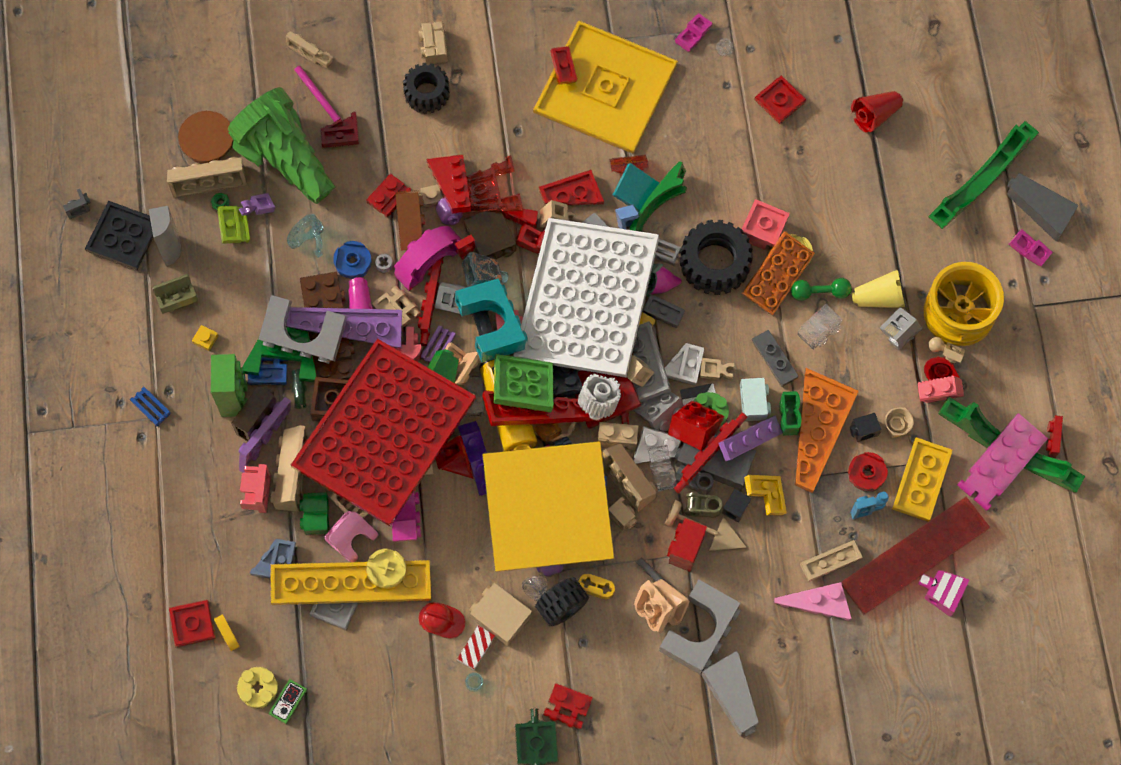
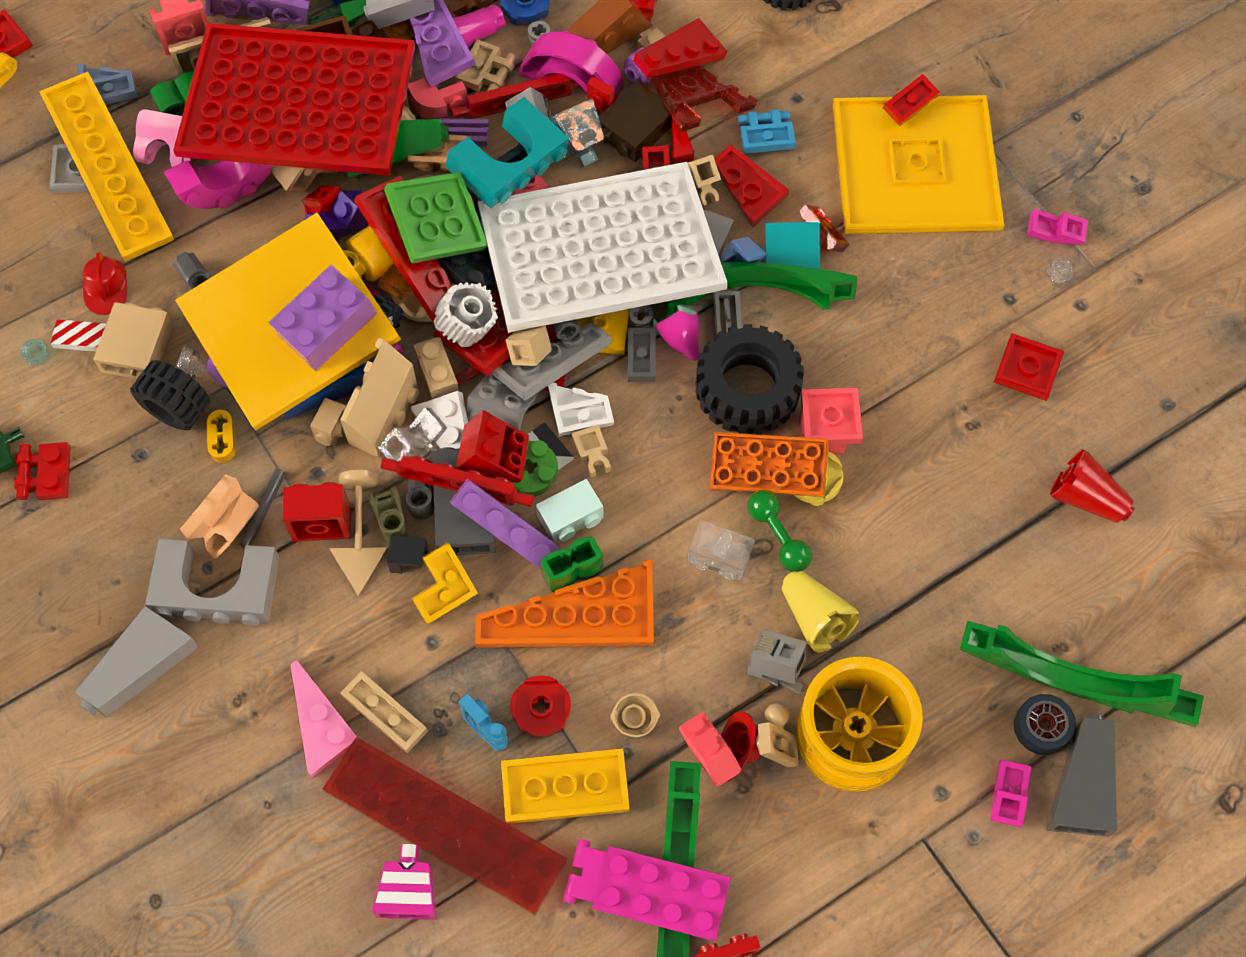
camera: 65 degrees right, 5 degrees down
(386, 568) = (137, 191): light yellow tile -> none
(467, 557) = (191, 270): none -> dark grey piece
(542, 163) = (766, 137): none -> dark azure plate
(568, 479) = (323, 317): none -> medium lavender brick
(775, 358) = (648, 517): dark grey plate -> none
(865, 427) = (604, 674): black brick -> none
(1006, 203) = (1044, 709): none -> wheel

